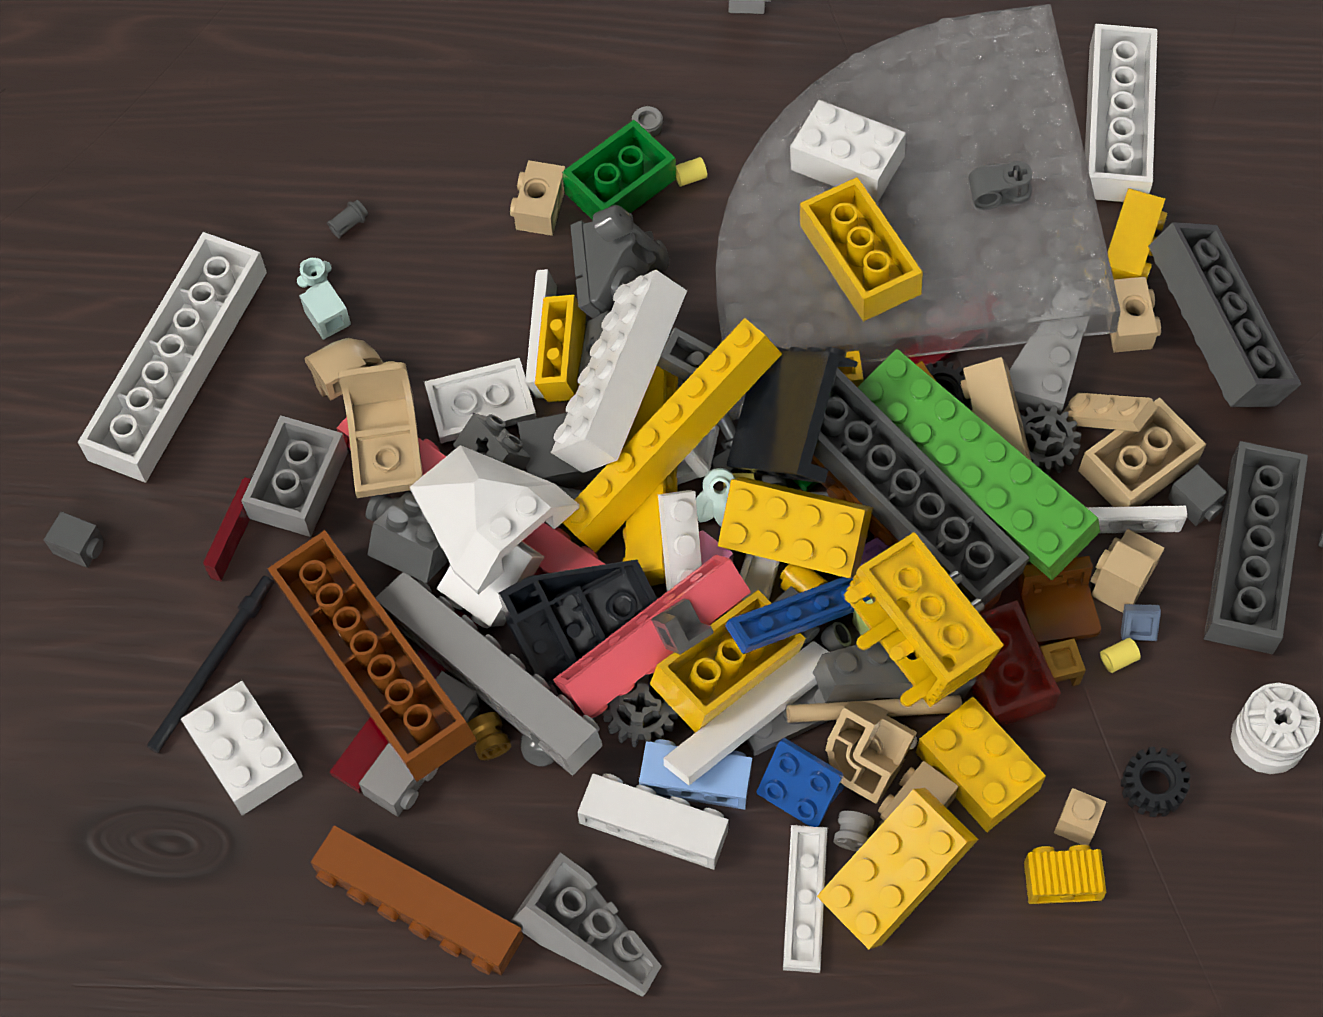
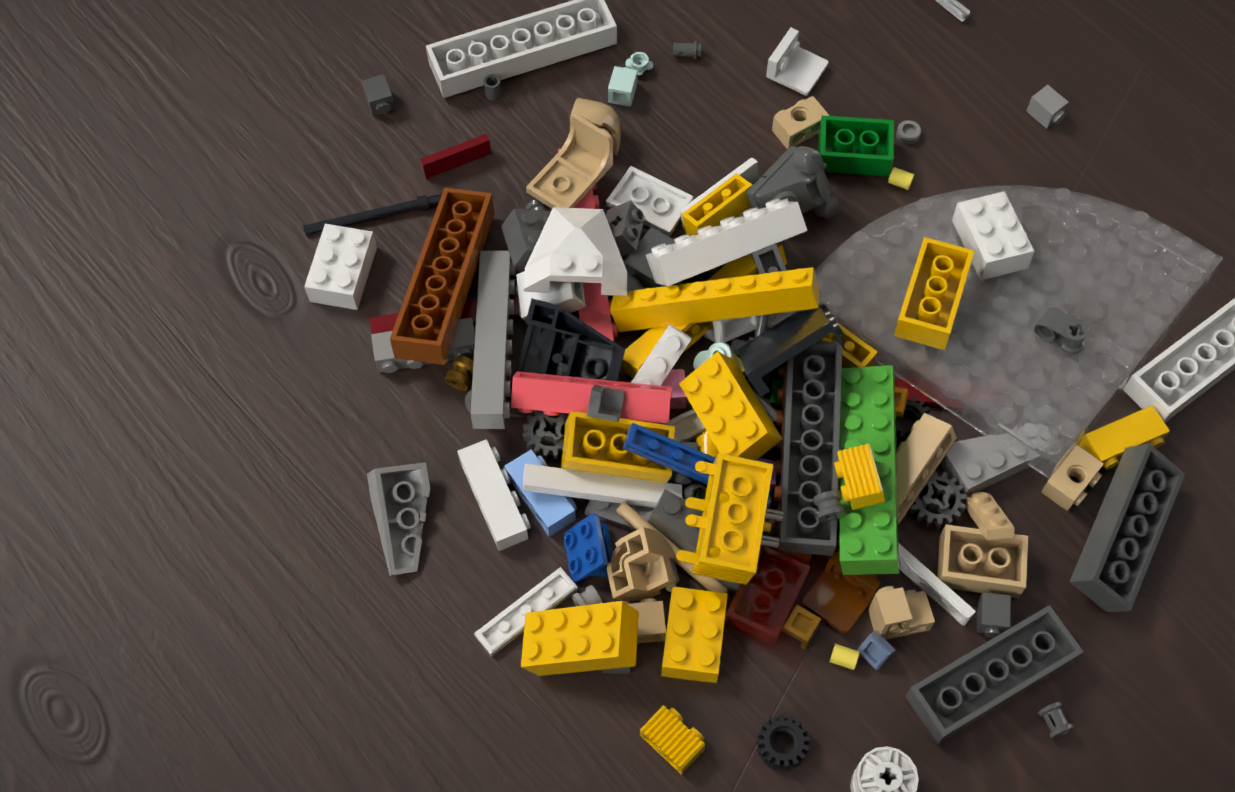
camera: 45 degrees right, 0 degrees up
(189, 426) = (492, 87): none -> dark grey hinge
(295, 476) = (511, 155): light grey brick -> none
(417, 900) = (337, 421): dark orange brick -> none
(474, 146) = (794, 65): none -> white bracket
(990, 474) = (860, 477): none -> yellow brick
(991, 525) = (829, 506): none -> dark grey wheel
(1080, 817) = (716, 717): tan brick -> none

